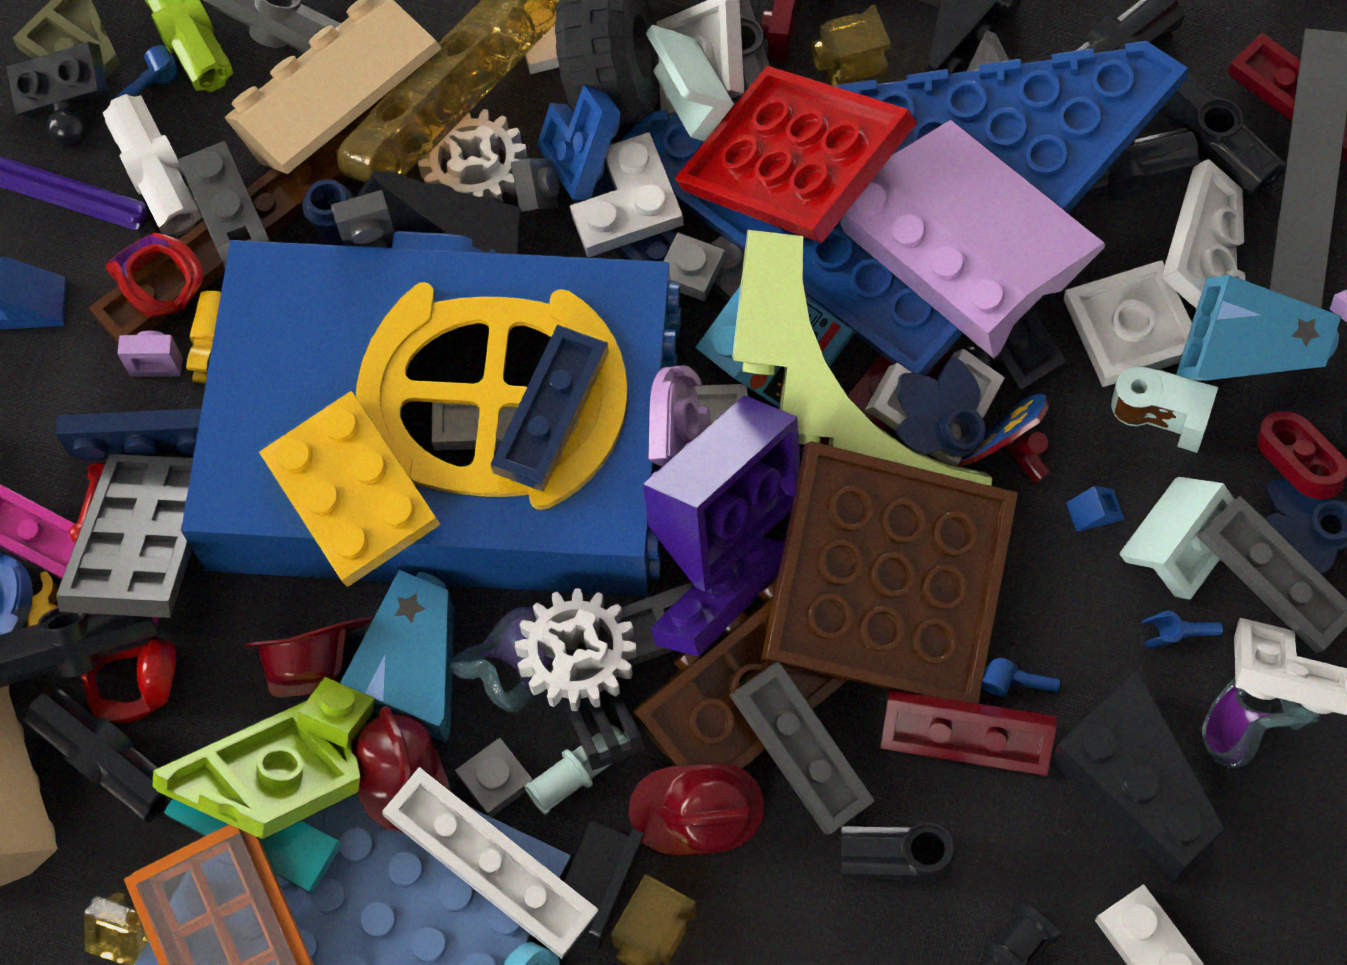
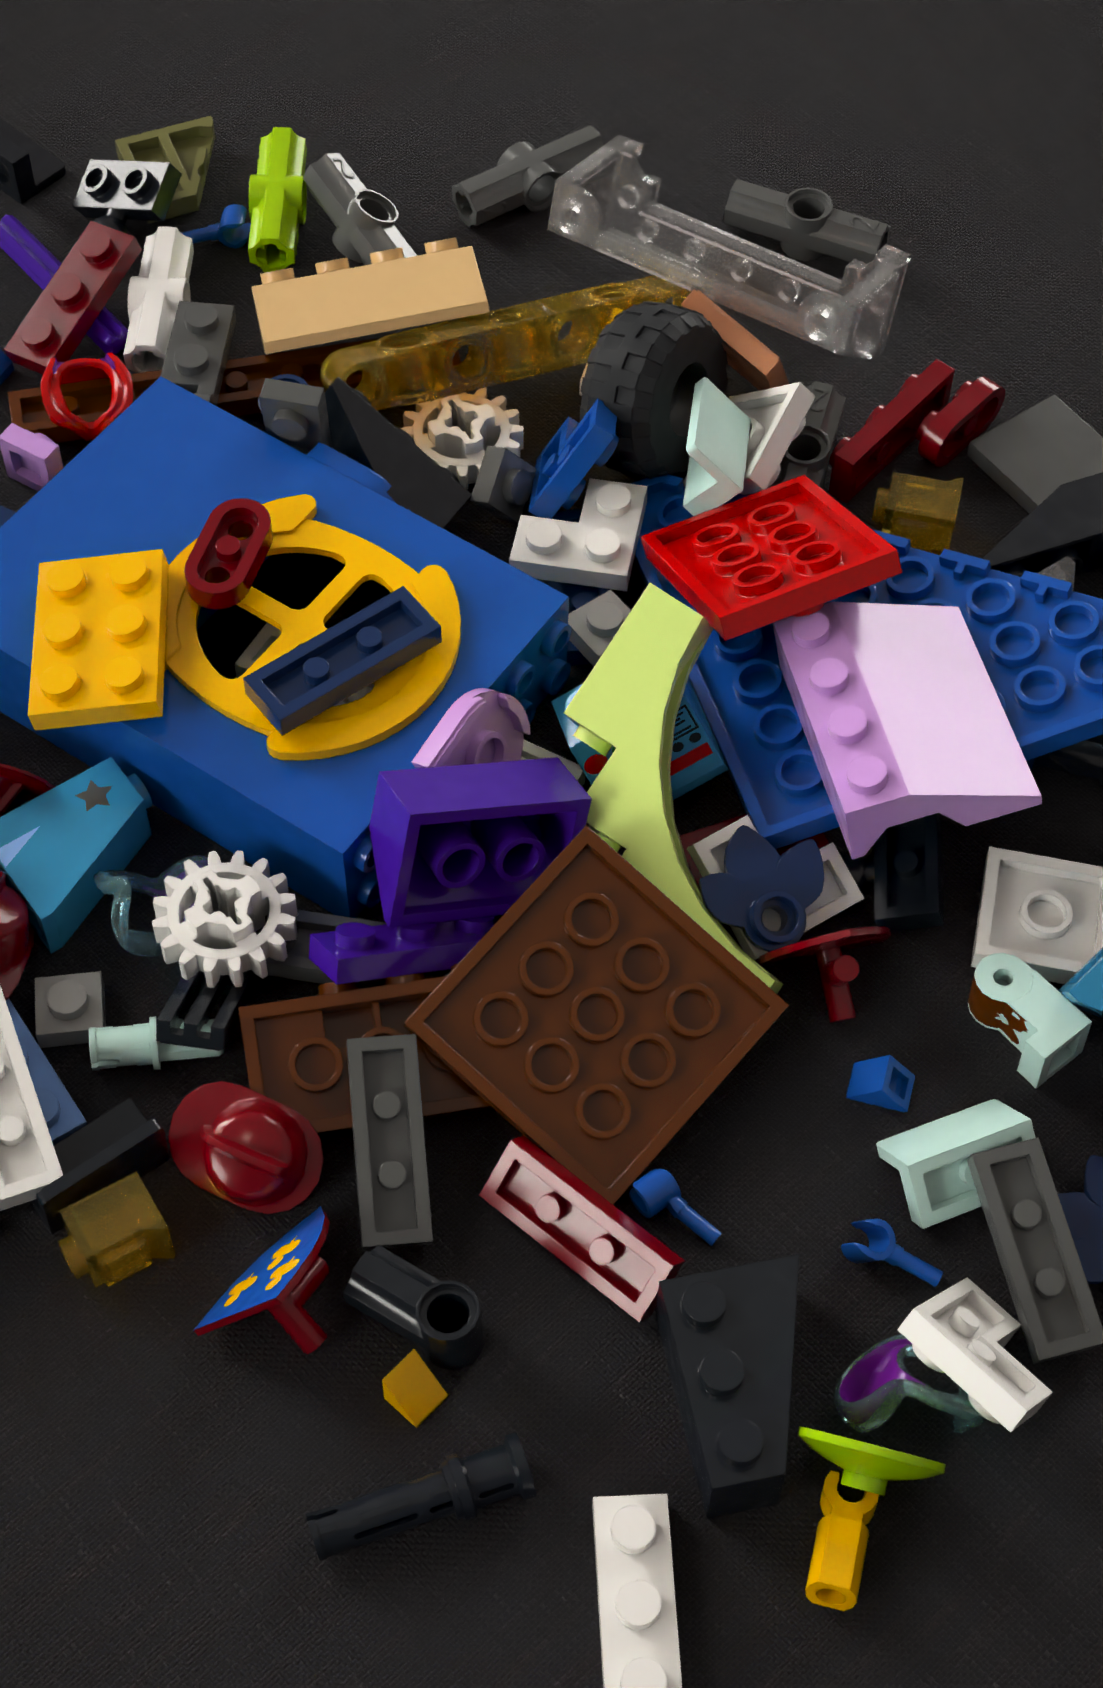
camera: 25 degrees right, 10 degrees down
(84, 199) = (73, 297): none -> dark red plate
(405, 369) = (222, 565): none -> dark red plate
(789, 893) = (281, 1284): none -> shield
(929, 913) = (413, 1389): none -> yellow piece
(1265, 785) = (869, 1465): none -> lime dish
(1273, 850) = (839, 1547): none -> yellow bar

